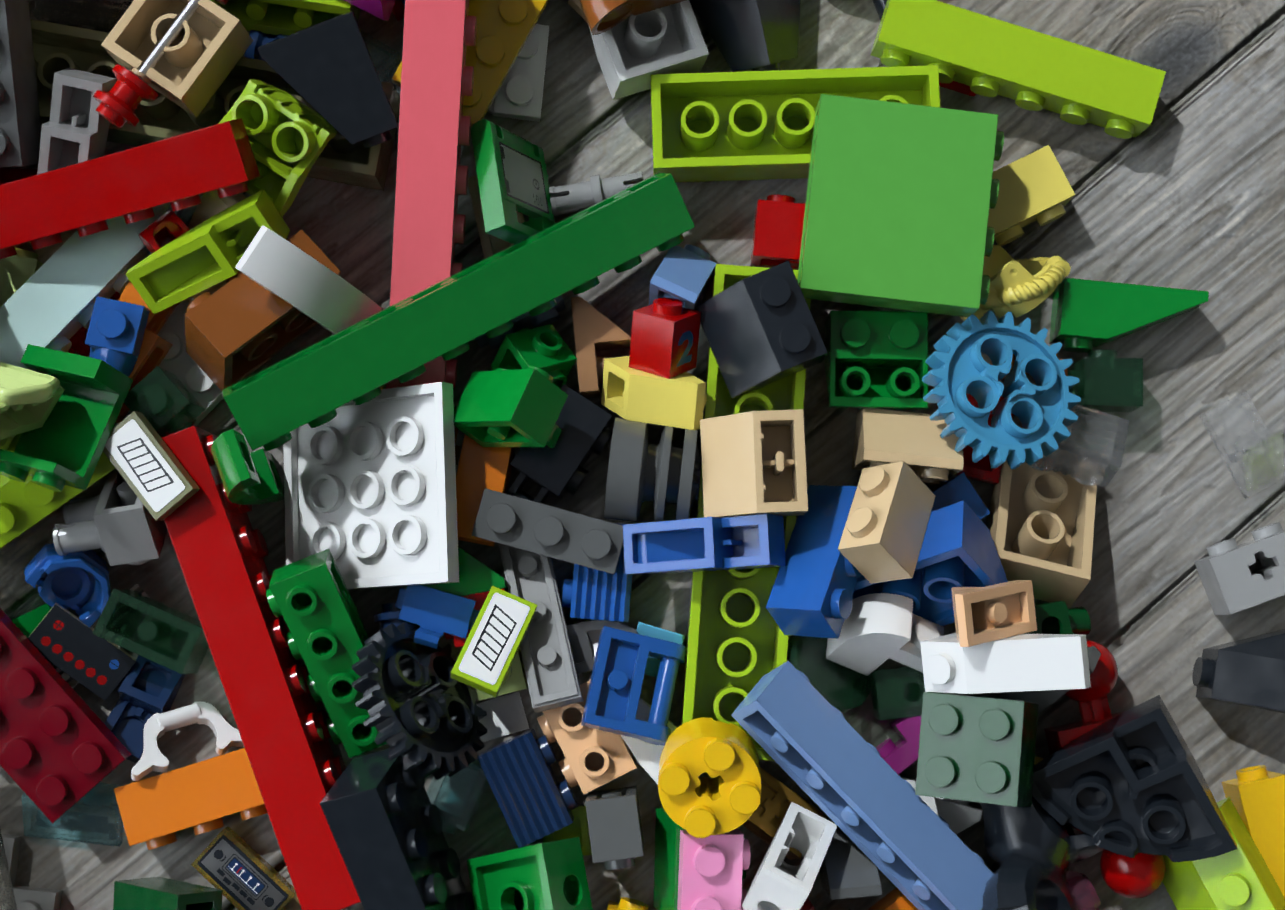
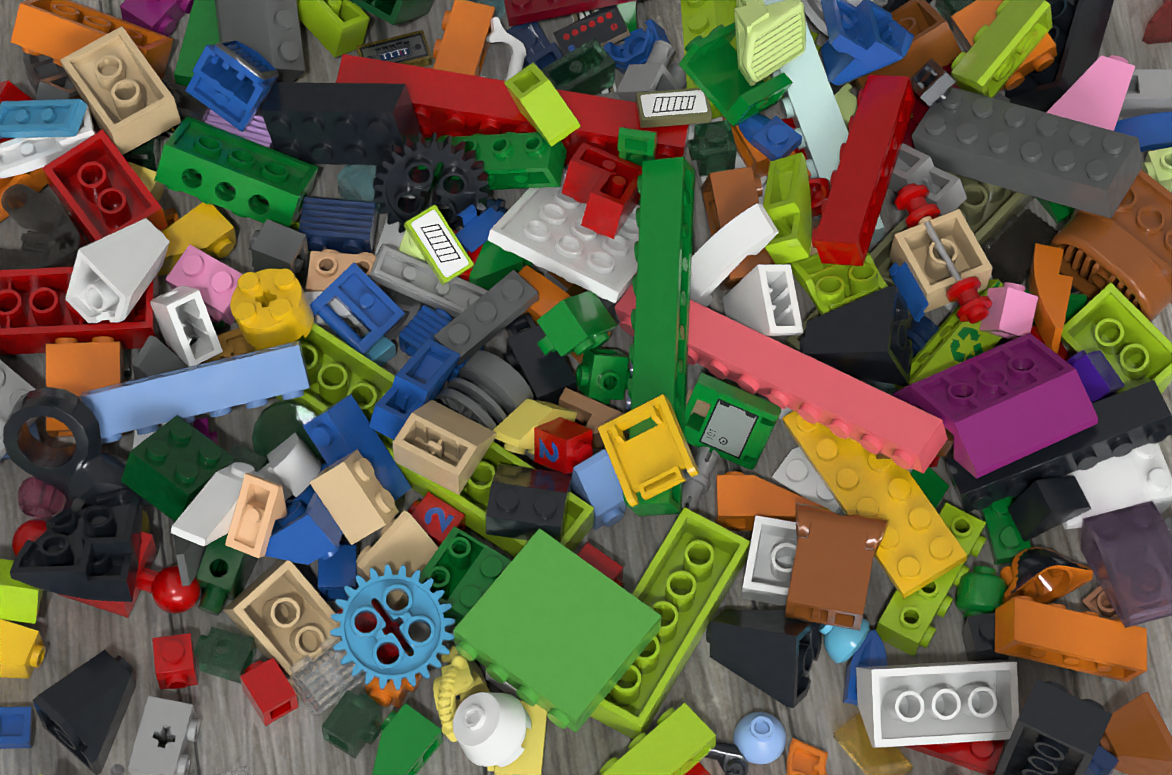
camera: 115 degrees right, 20 degrees down
(239, 56) = (909, 290): none -> blue piece
(248, 613) = (541, 104): none -> lime slope
(295, 488) = (606, 187): none -> red brick
(351, 215) = (766, 301): none -> white slope
(588, 117) = (745, 496): none -> orange slope
(630, 222) = (651, 459): none -> yellow container
(827, 441) = (436, 517): none -> red brick
(1041, 216) = (491, 728): none -> white cone
(1103, 582) = (228, 664): none -> clear green brick
(1130, 498) = (268, 690): none -> red brick
(1165, 616) = (175, 661): none -> red brick

